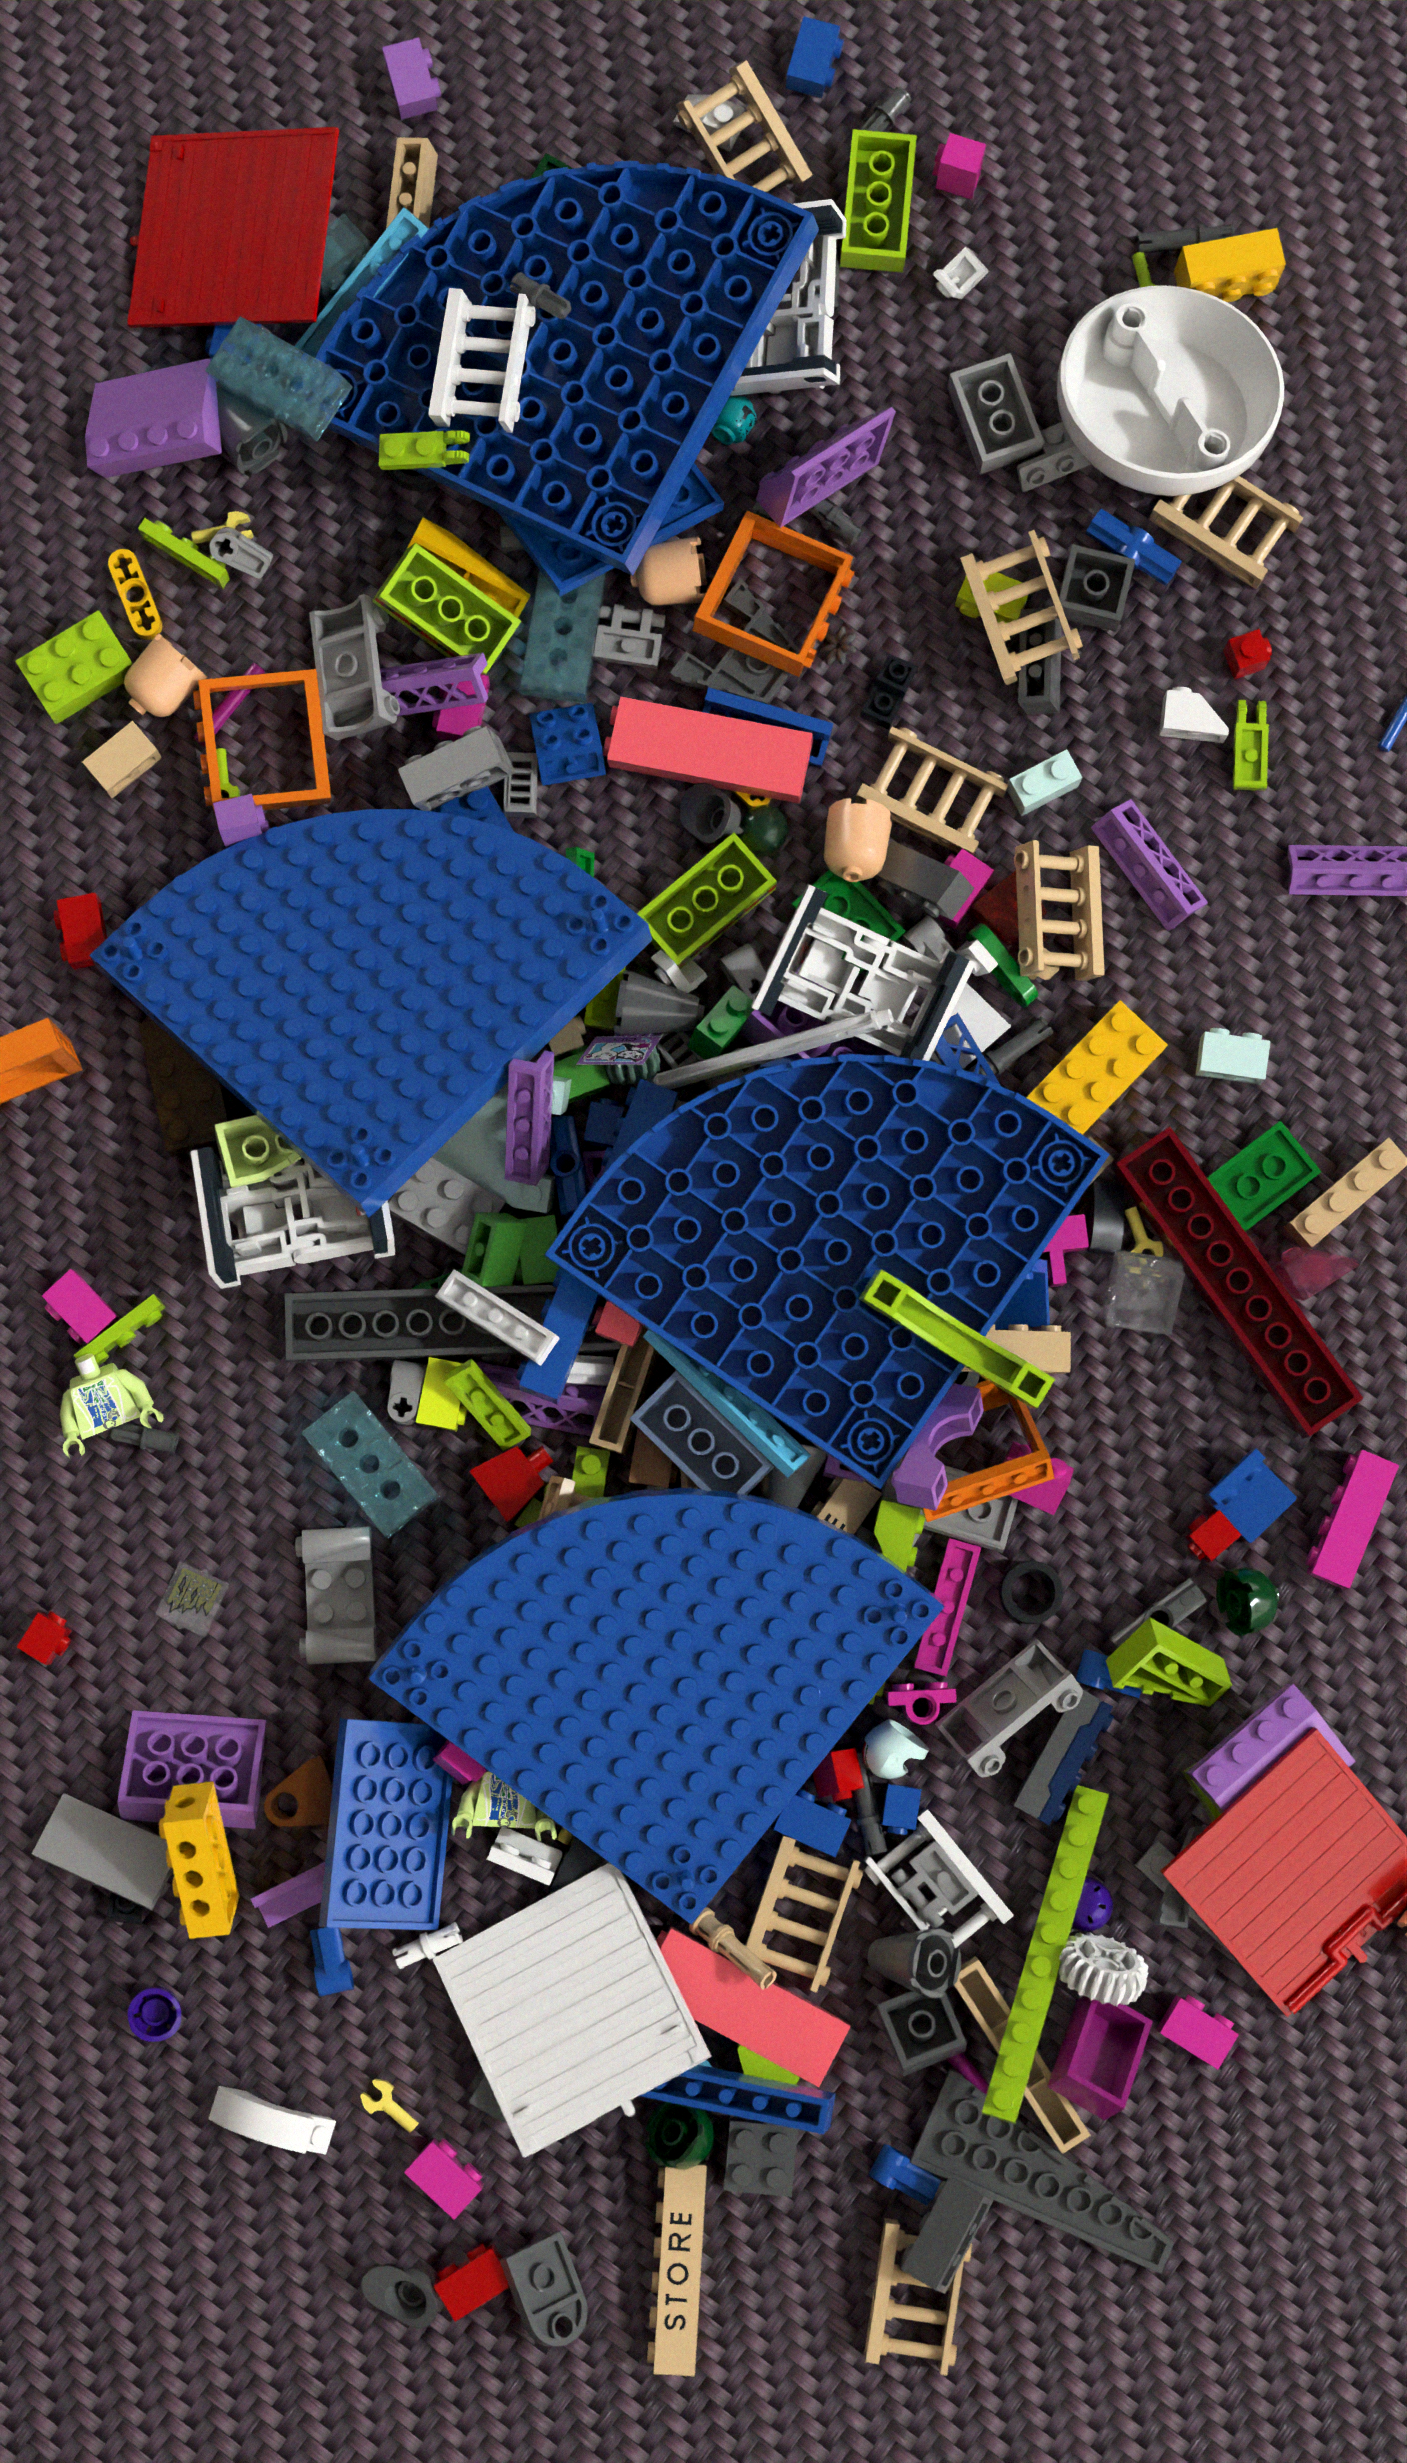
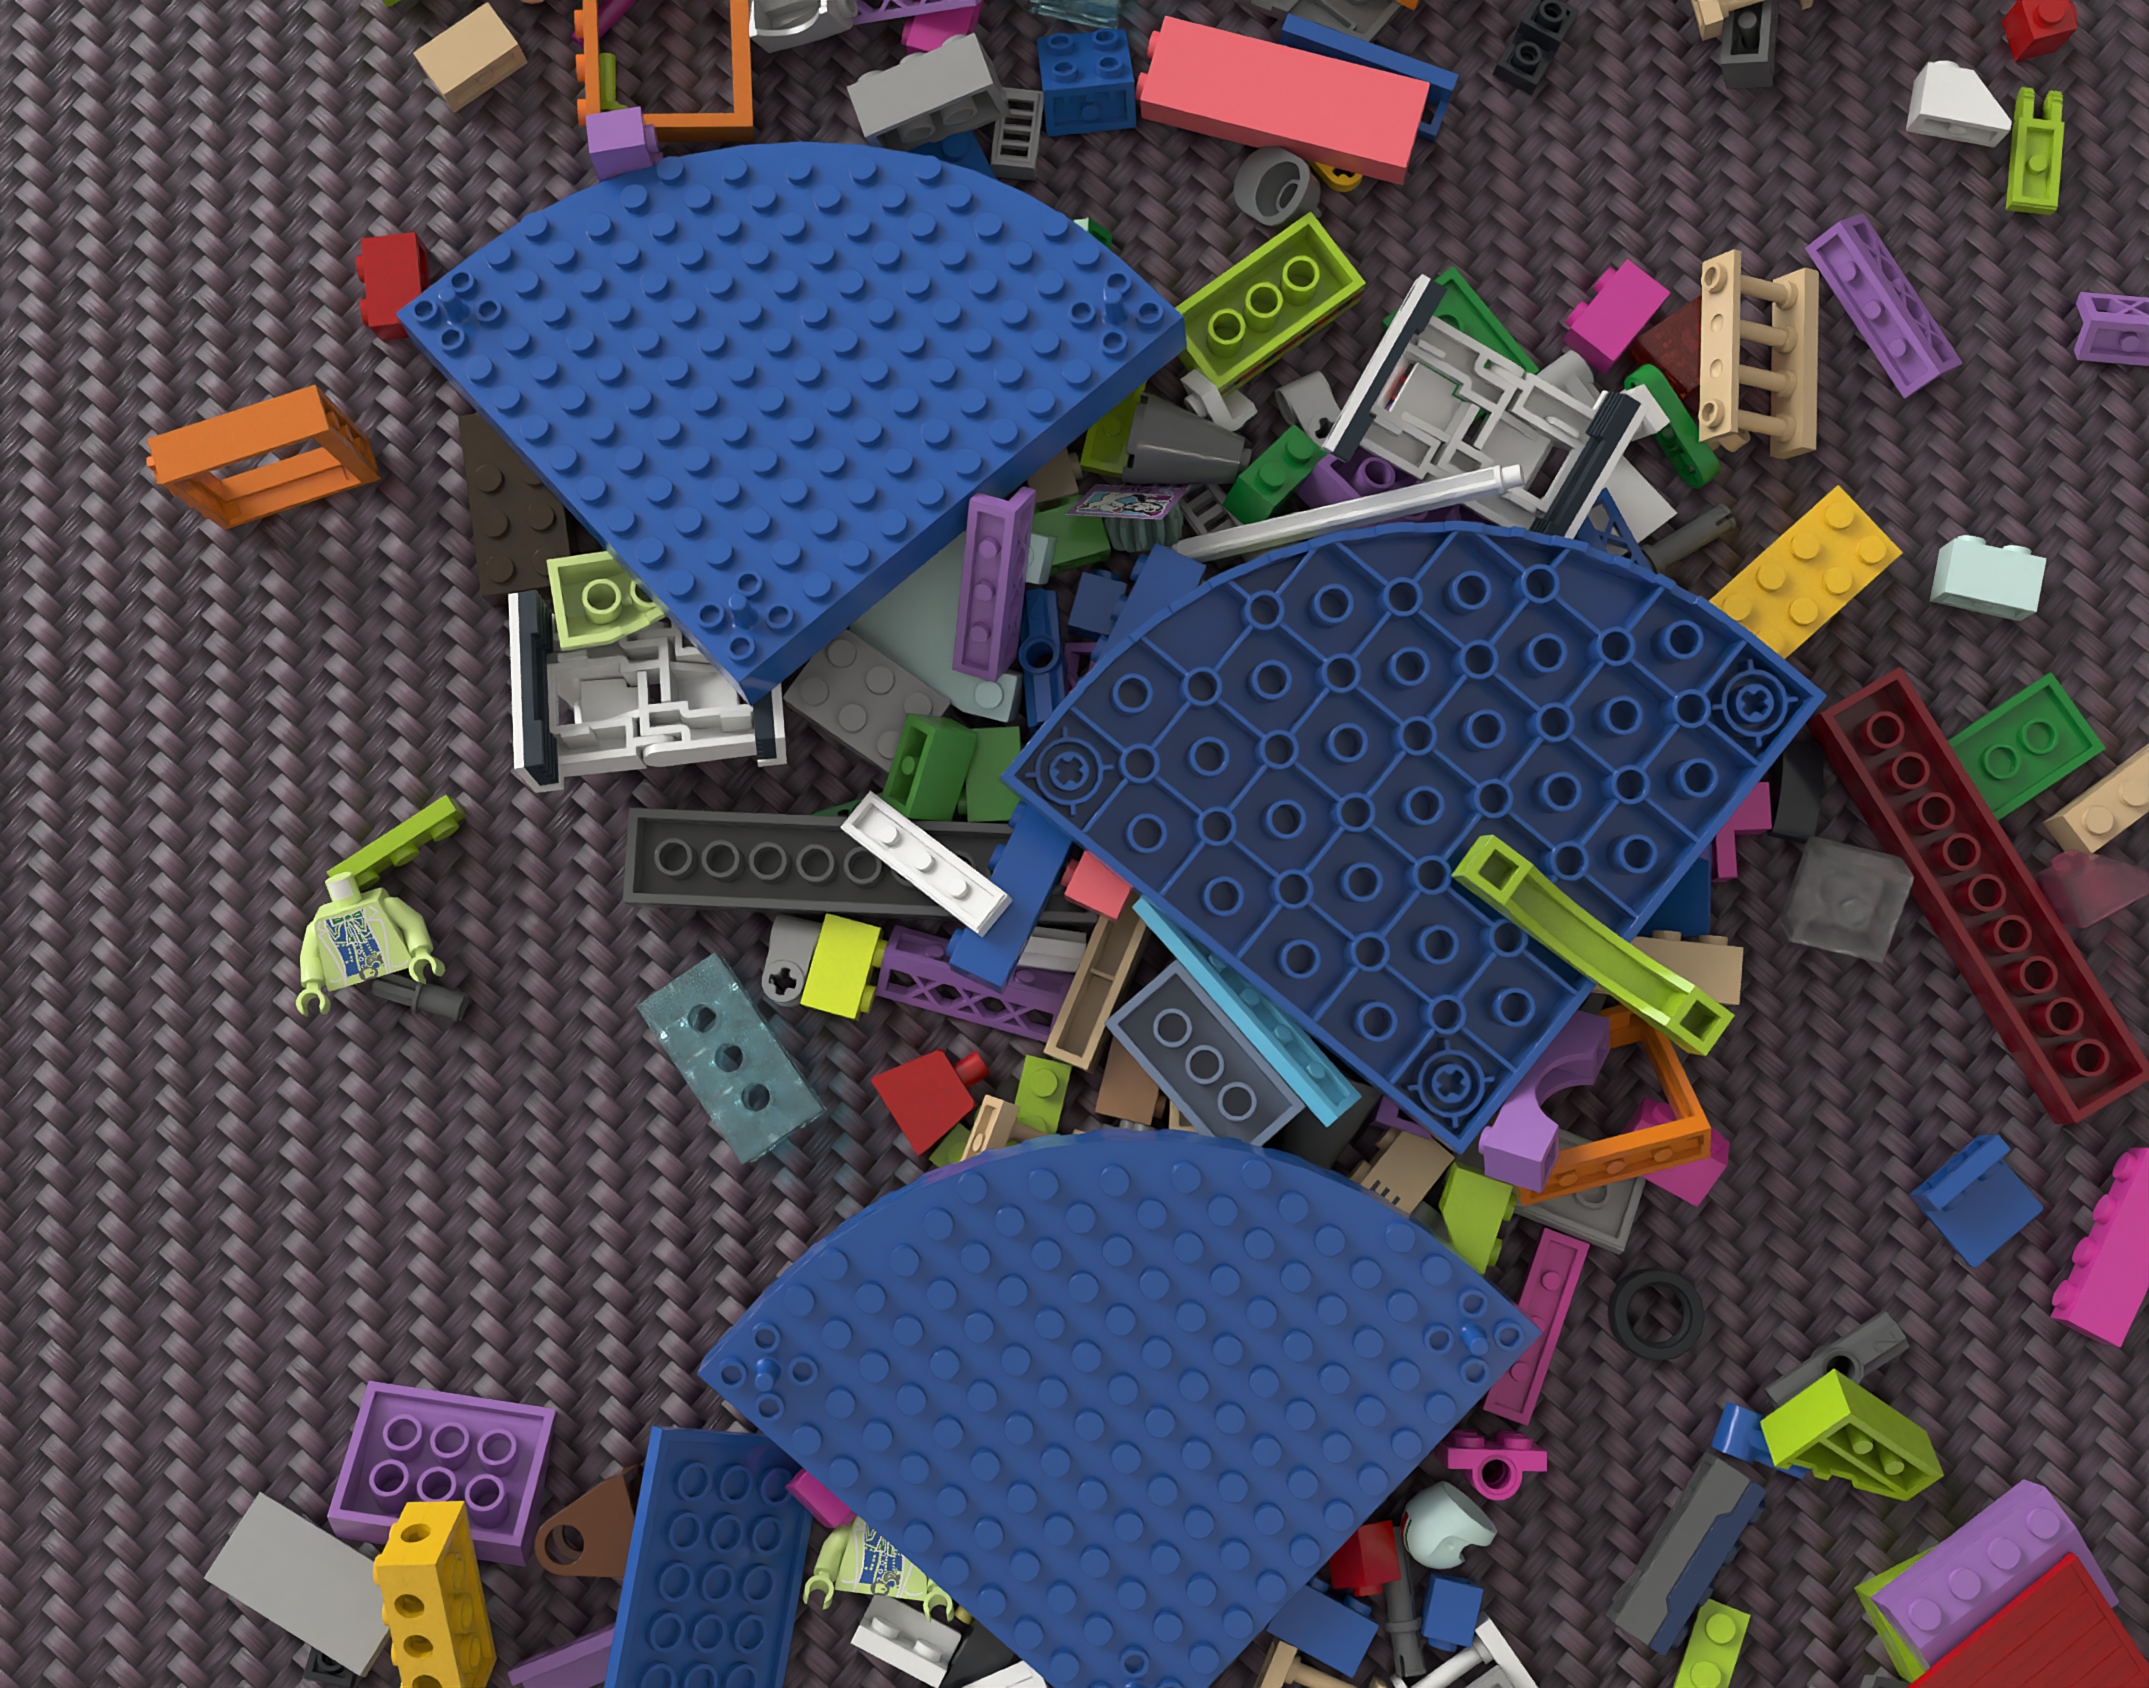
camera: 10 degrees right, 0 degrees up
(46, 1637) = (254, 1268): red brick -> none
(79, 1307) = (343, 805): dark pink brick -> none
(192, 1599) = (467, 1228): piece -> none
(338, 1595) = (672, 1241): light grey piece -> none
(487, 1404) = (903, 987): lime plate -> none
(763, 829) = (1351, 216): clear green hair -> none
(856, 839) = (1481, 233): light nougat cylinder -> none
(923, 881) = (1570, 298): dark grey brick -> none
(933, 825) = (1547, 205): tan fence -> none
(1006, 1704) = (1615, 1477): light grey piece -> none
(1044, 782) = (1745, 179): light aqua brick -> none
(1140, 1236) = (1840, 817): light yellow bar -> none
(1211, 1536) = (1919, 1253): red brick -> none
(1248, 1600) = (1966, 1351): dark green cylinder -> none

